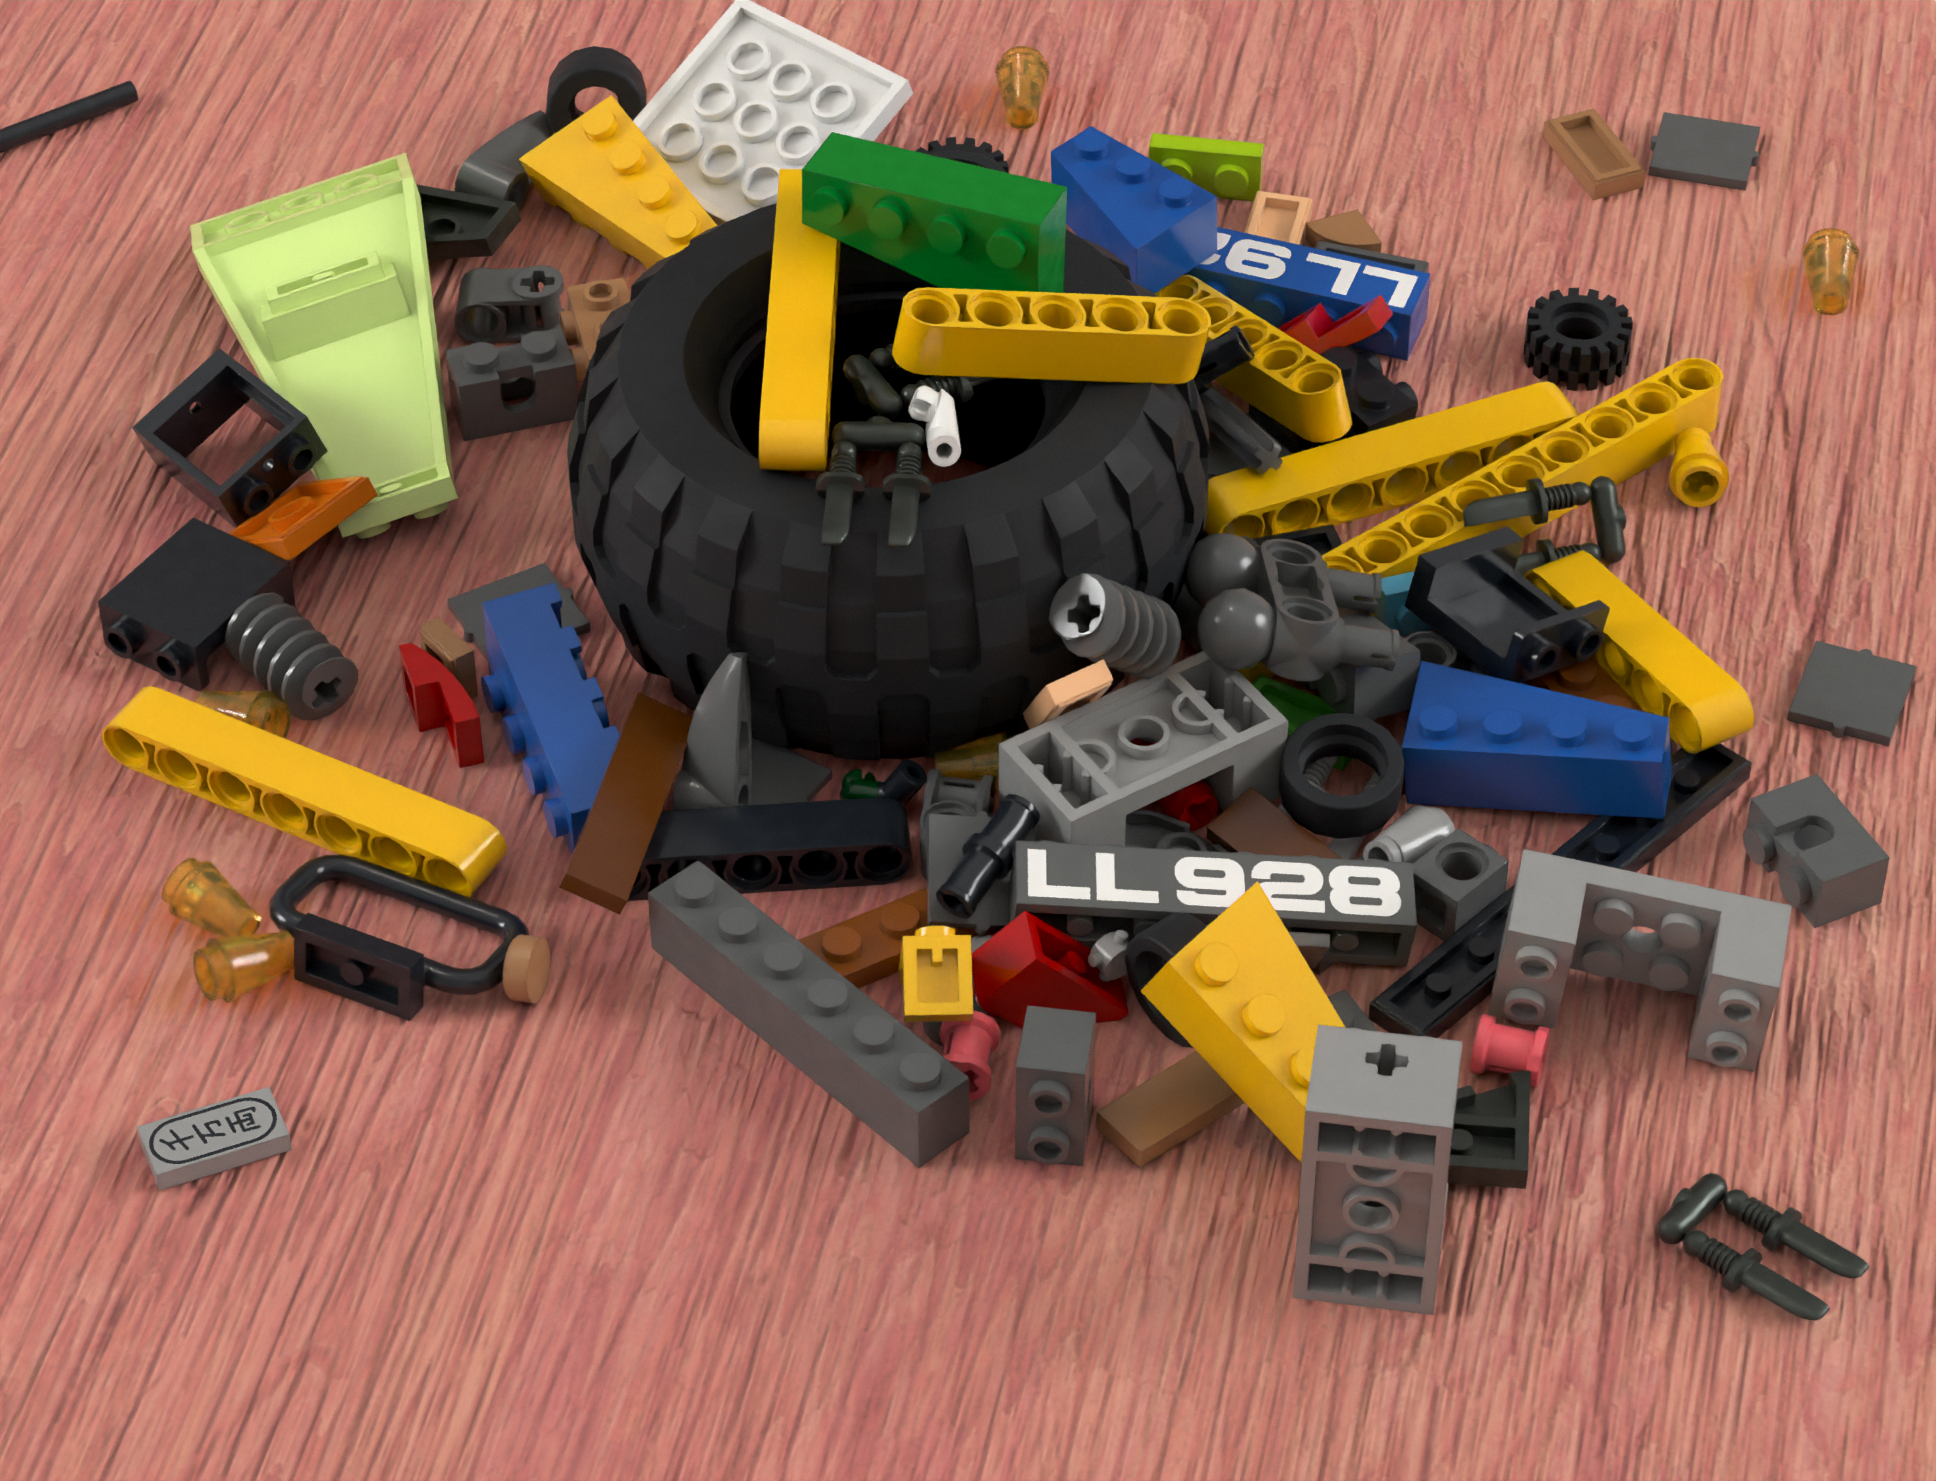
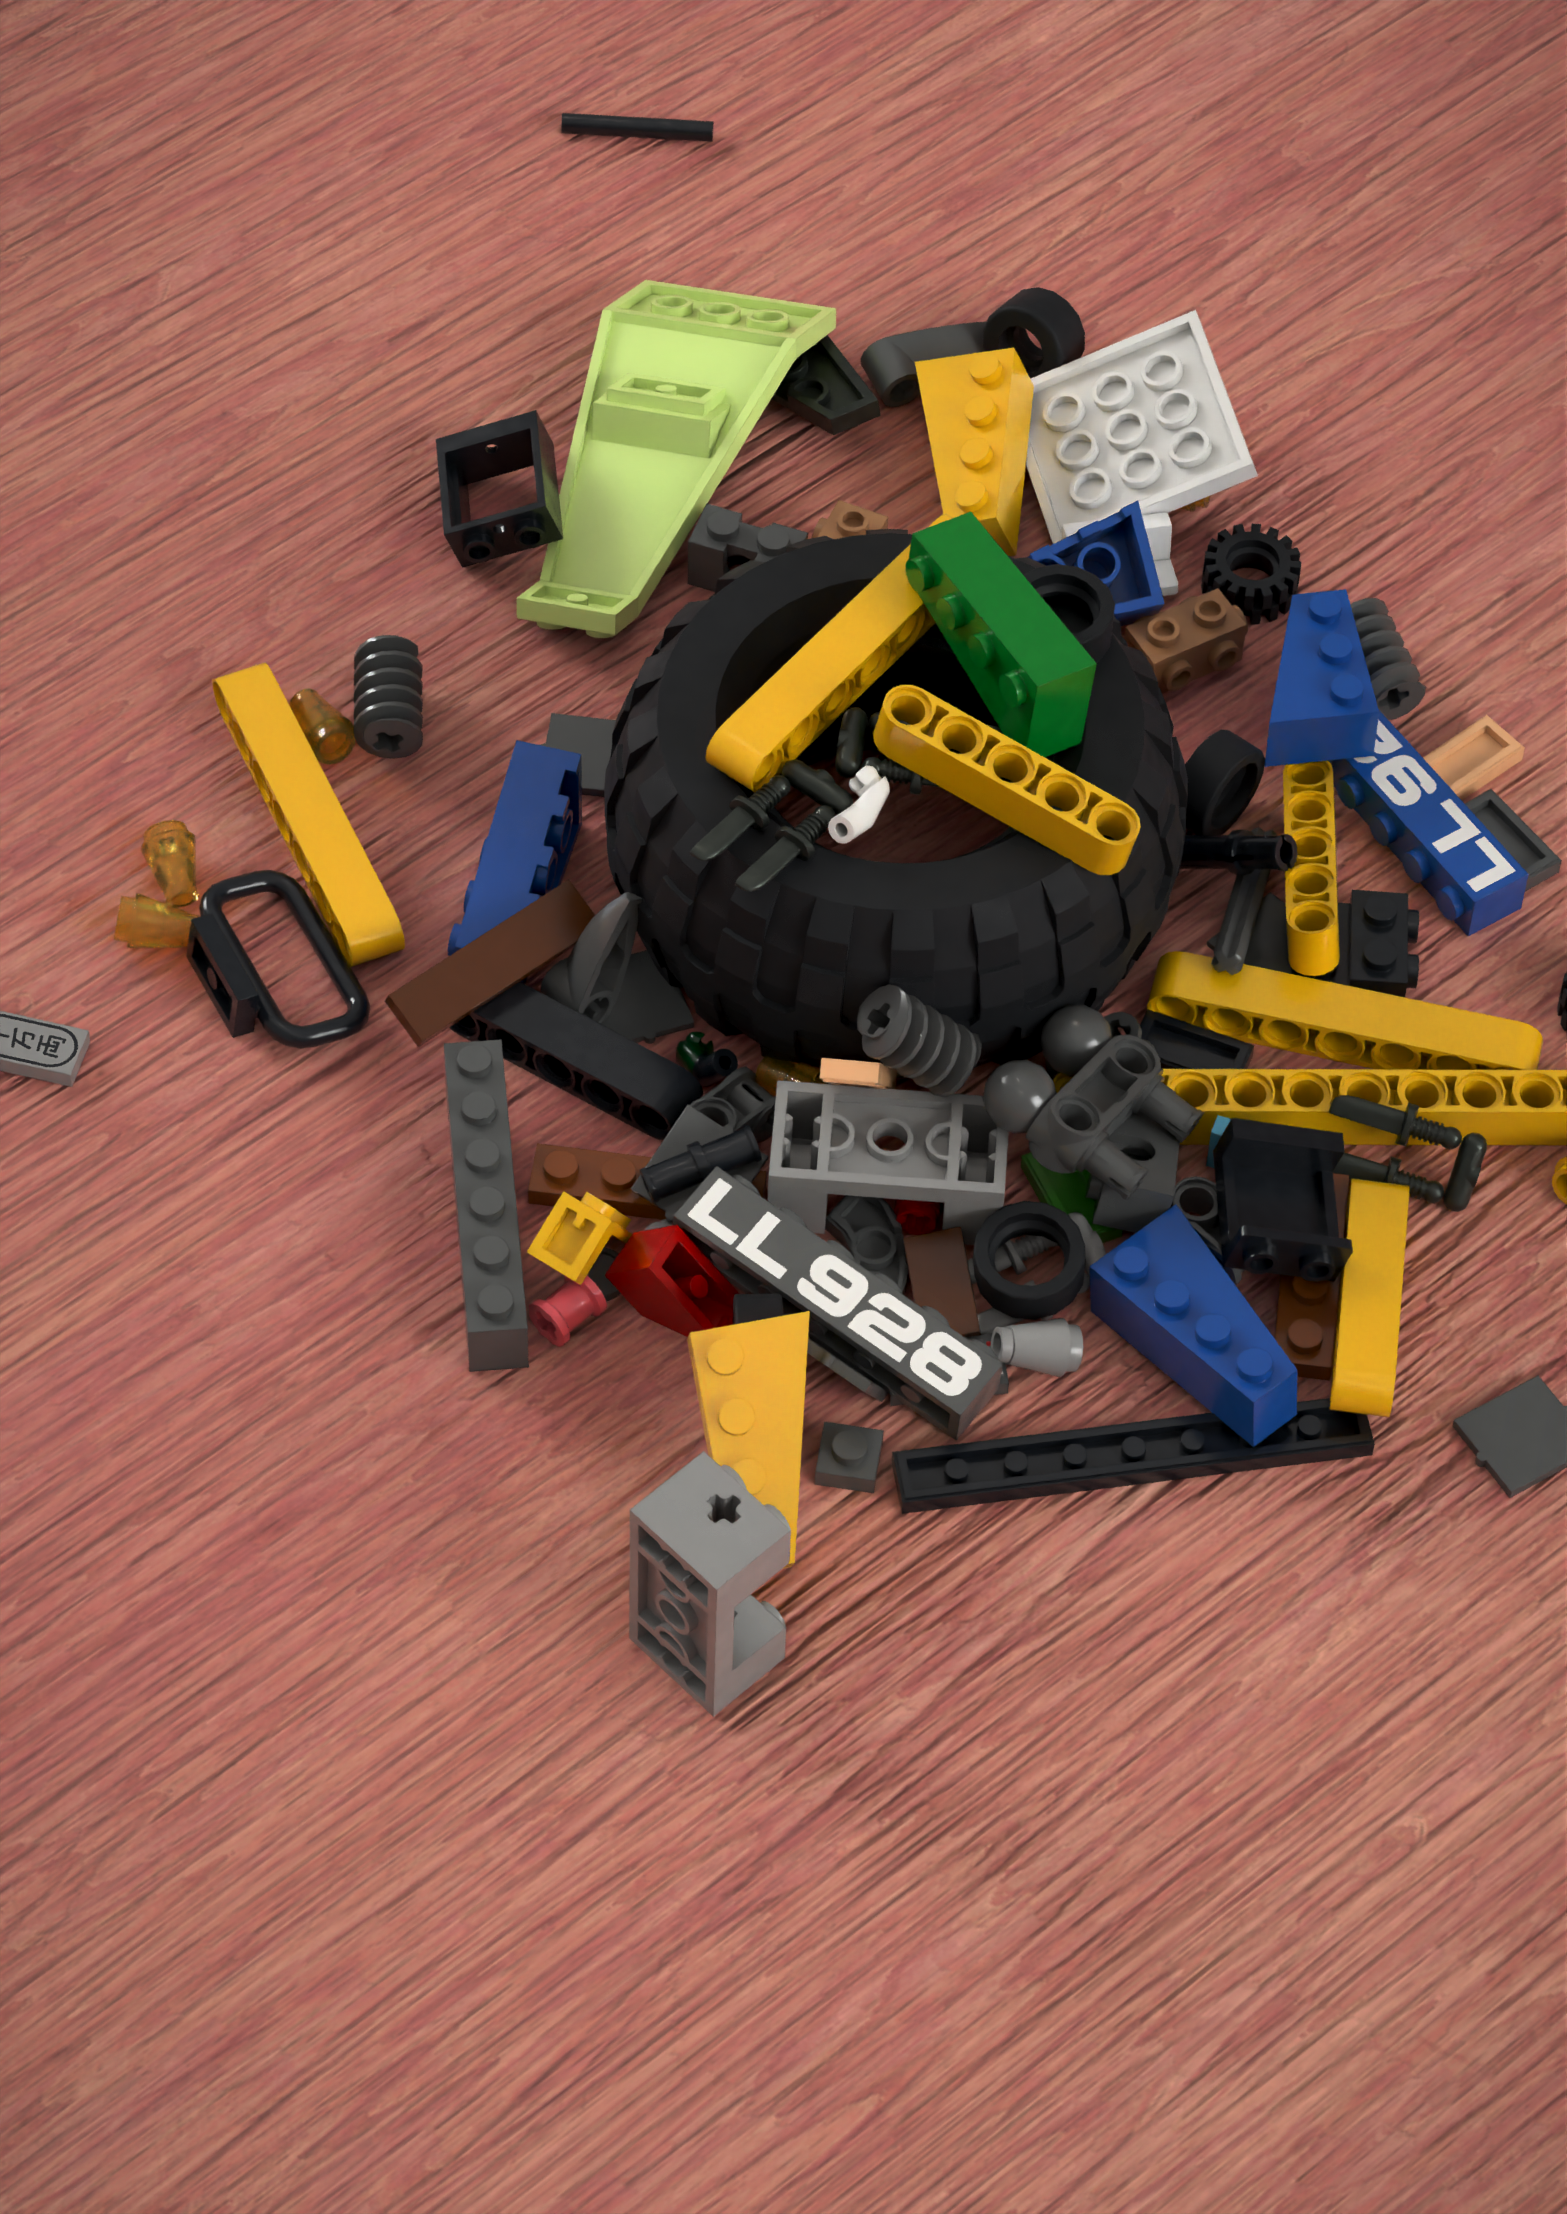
camera: 35 degrees right, 10 degrees up
(182, 598) = (361, 599): black panel -> none
(305, 514) = (489, 584): orange tile -> none
(441, 701) = (459, 800): red slope -> none
(451, 651) = (495, 762): medium nougat tile -> none
(507, 303) = (806, 482): dark grey piece -> none
(526, 968) = (332, 1048): medium nougat tile -> none
(1022, 83) = (1391, 508): clear yellow cone -> none
(1055, 1085) = (586, 1373): dark grey brick -> none
(1109, 955) = (723, 1295): light grey piece -> none
(1167, 1109) = (658, 1439): medium nougat tile -> none
(1217, 165) = (1460, 670): lime plate -> none
(1320, 333) = (1397, 875): red slope -> none
(1343, 229) = (1522, 793): medium nougat tile -> none
(1456, 883) = (1039, 1380): dark grey brick -> none
(1492, 1135) = (857, 1599): pearl dark grey wing -> none
(1509, 1049) = (953, 1555): coral bush -> none
(1695, 1204) = (957, 1831): pearl dark grey piece -> none
(1704, 945) = (1158, 1585): light grey plate -> none
(1817, 848) = (1341, 1547): dark grey brick -> none

